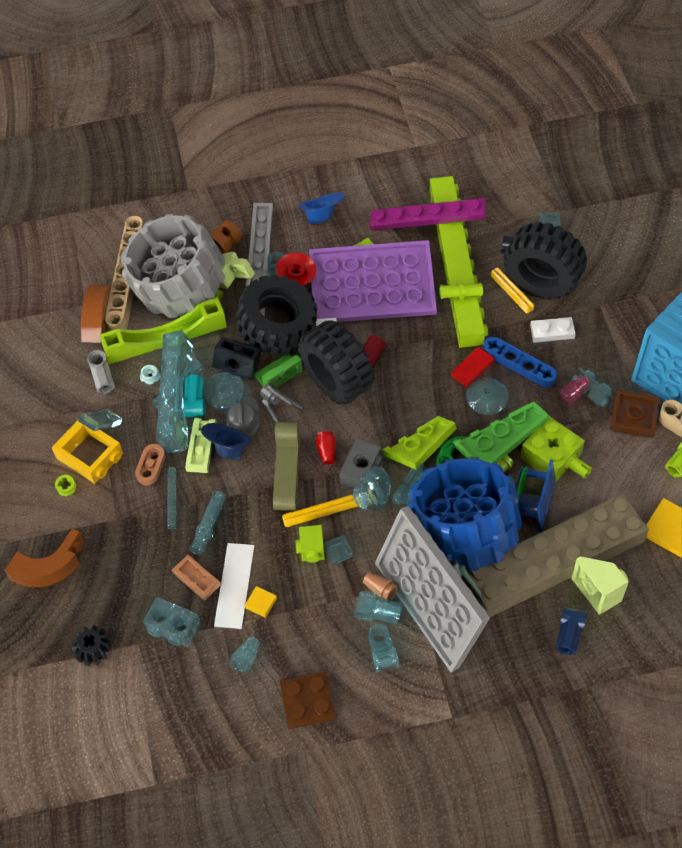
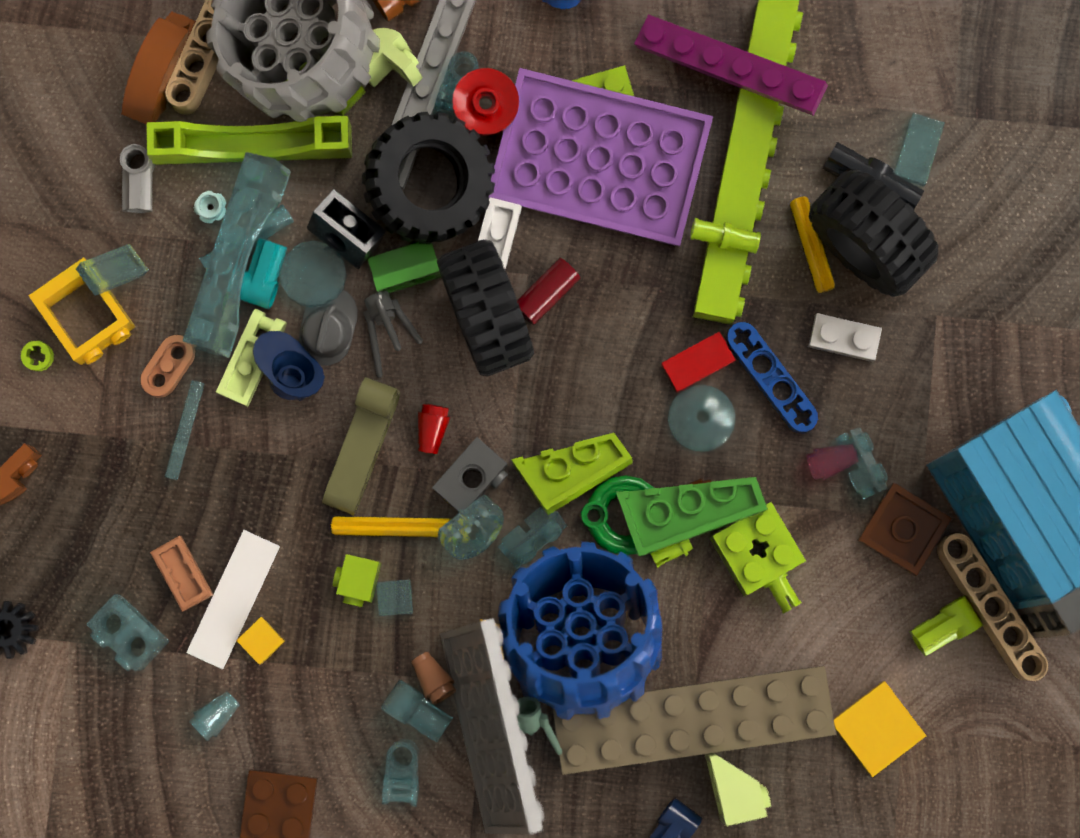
camera: 15 degrees right, 25 degrees up
(204, 530) = (219, 497): clear light blue pin -> none
(535, 505) = (686, 632): piece -> none

